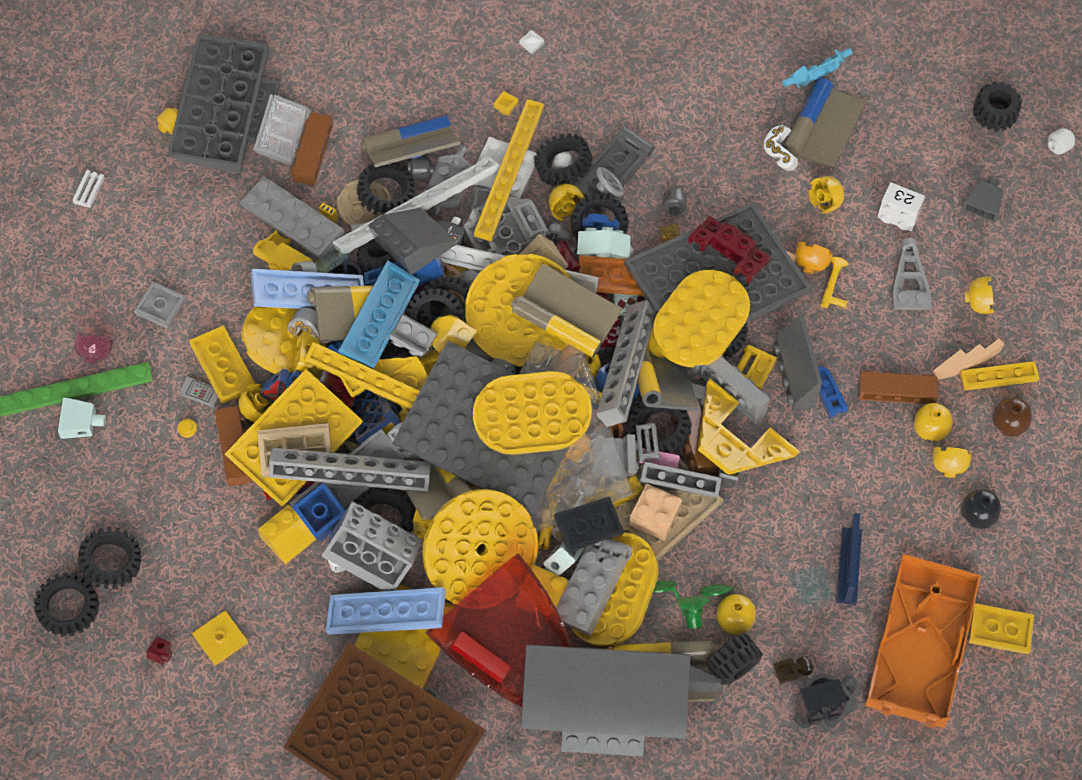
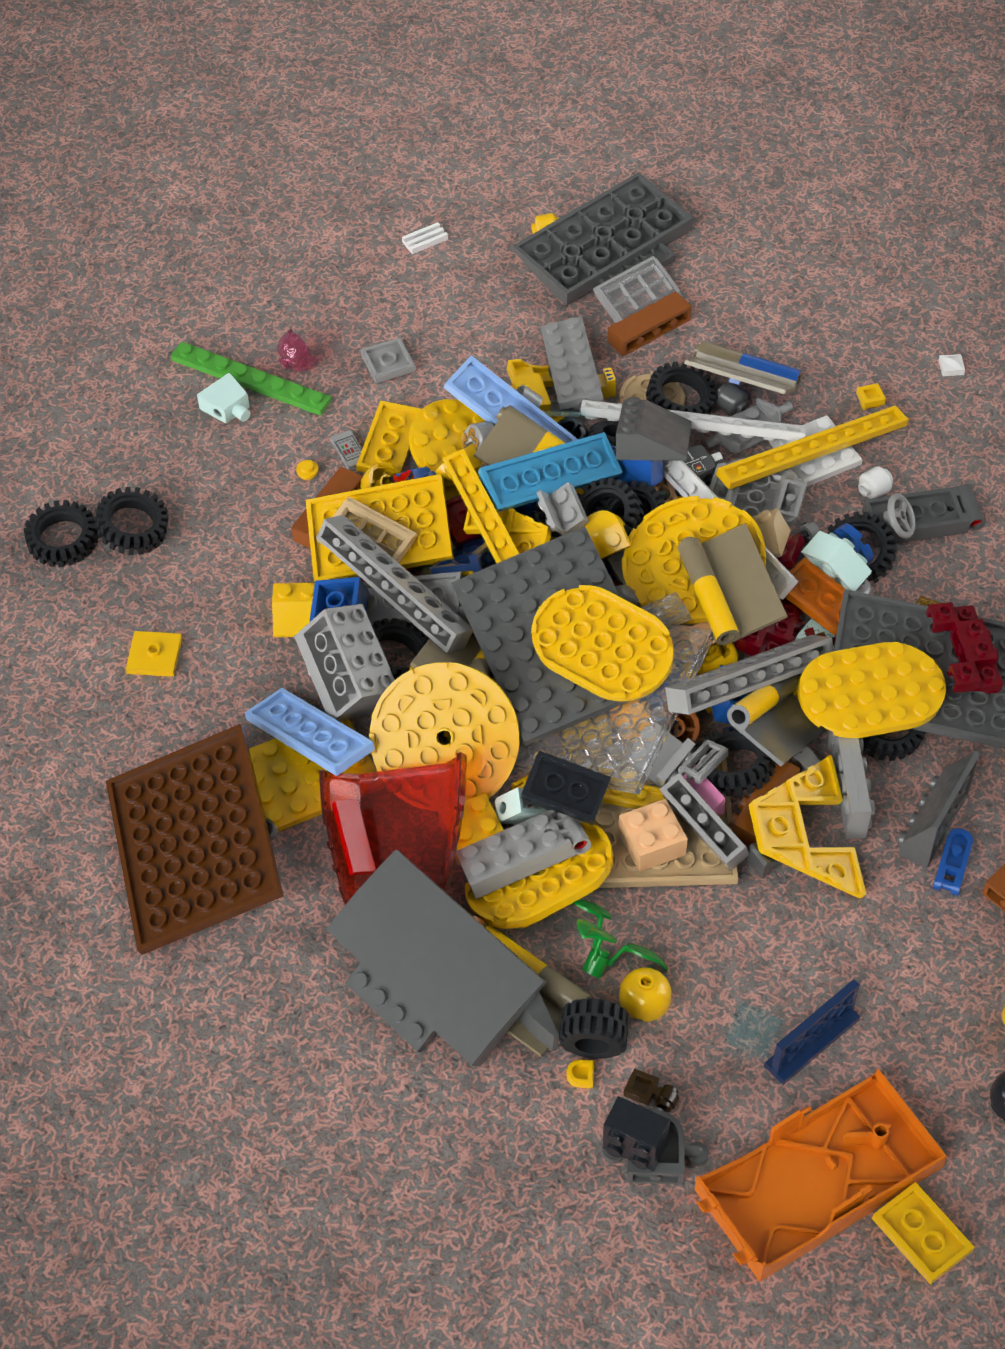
camera: 45 degrees right, 10 degrees down
(159, 651) = (92, 624): dark red plate -> none
(557, 146) = (896, 464): black tyre -> none
(564, 198) = (841, 503): yellow cylinder -> none
(674, 201) = (959, 583): dark grey head -> none
(744, 691) = (581, 1073): none -> yellow tile
(761, 366) = (897, 790): yellow plate -> none

